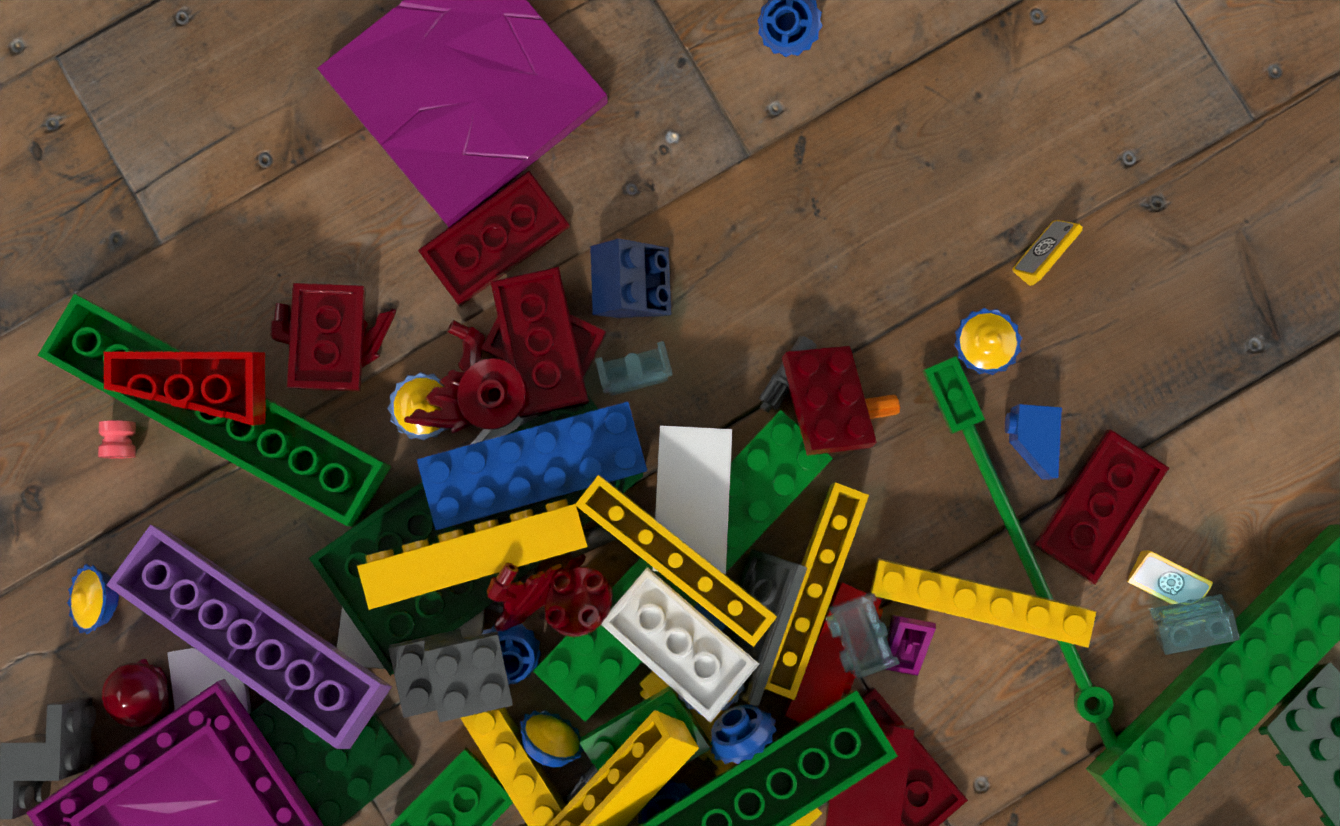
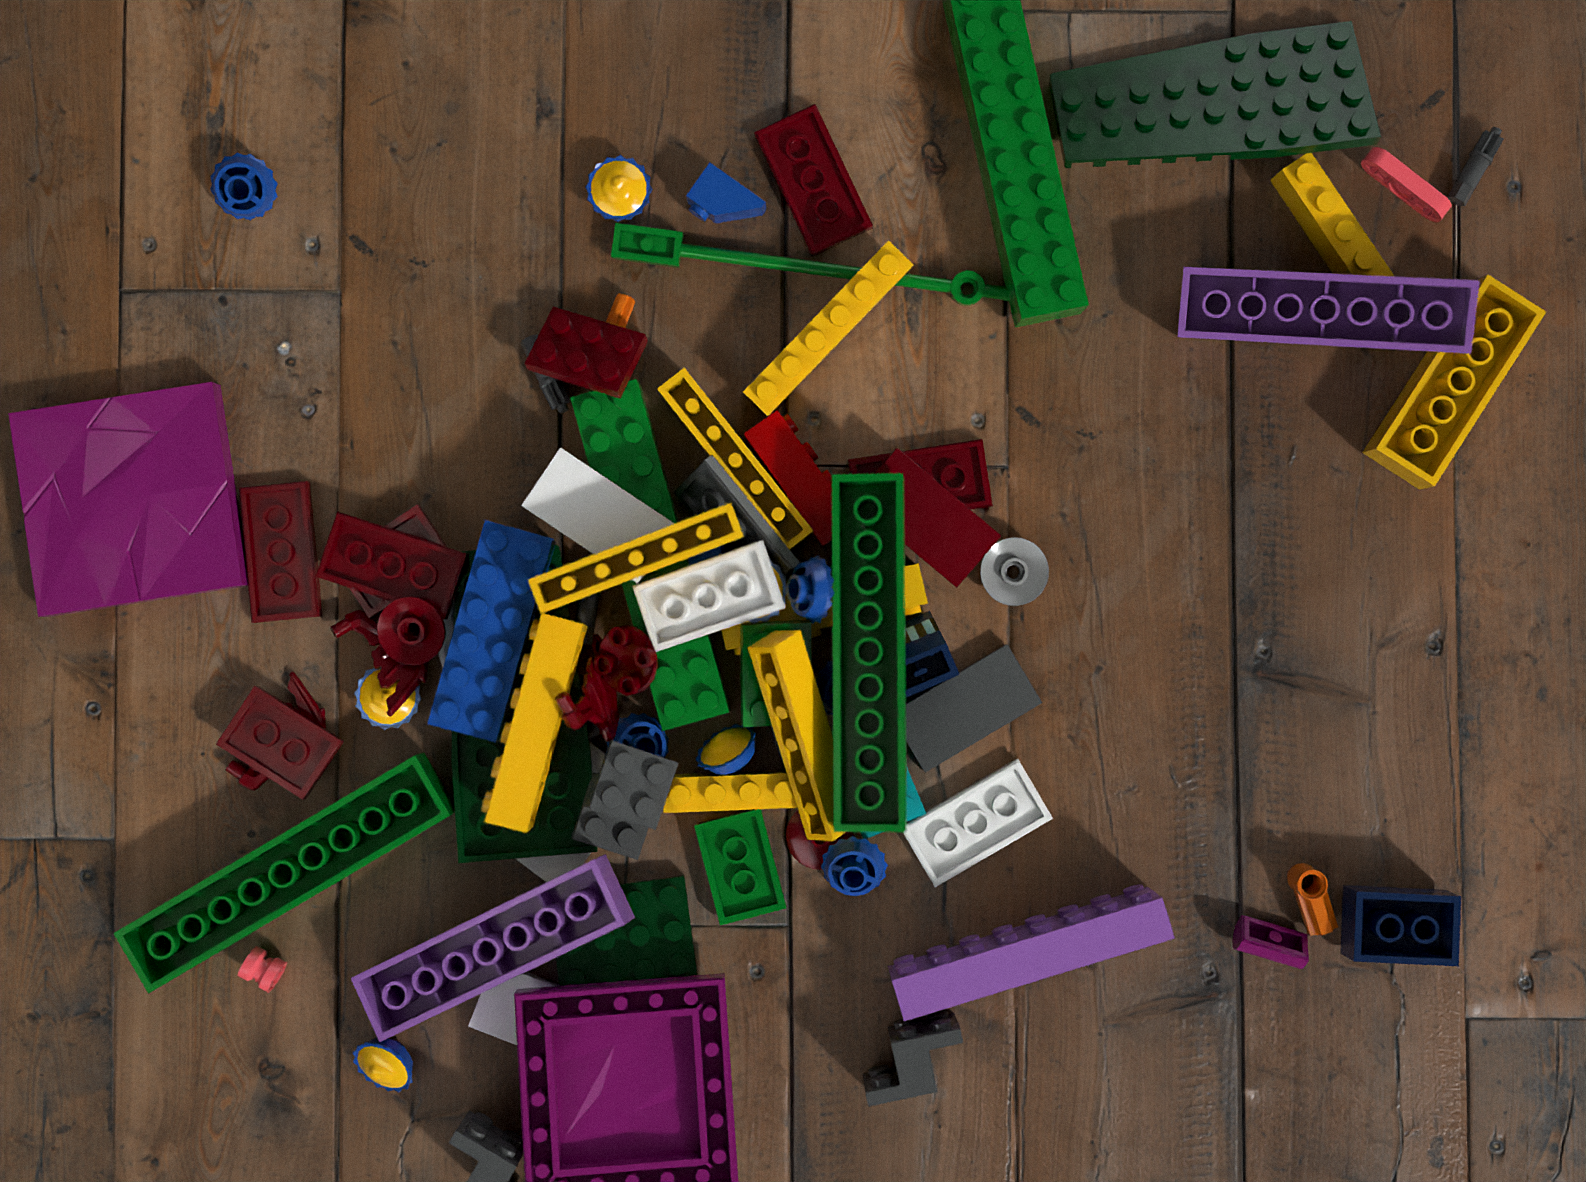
camera: 55 degrees left, 5 degrees up
(136, 694) = (487, 1070): dark red hair -> none
(207, 382) = (253, 862): red wedge -> none
(630, 279) = (385, 457): dark blue slope -> none
(634, 371) = (465, 499): clear light blue window -> none
(861, 636) = (793, 444): clear light blue window -> none
(909, 642) = (827, 410): magenta slope -> none
(1046, 250) = (573, 91): slope -> none
(1167, 579) = (907, 163): slope -> none
(1194, 624) = (951, 165): clear light blue window -> none

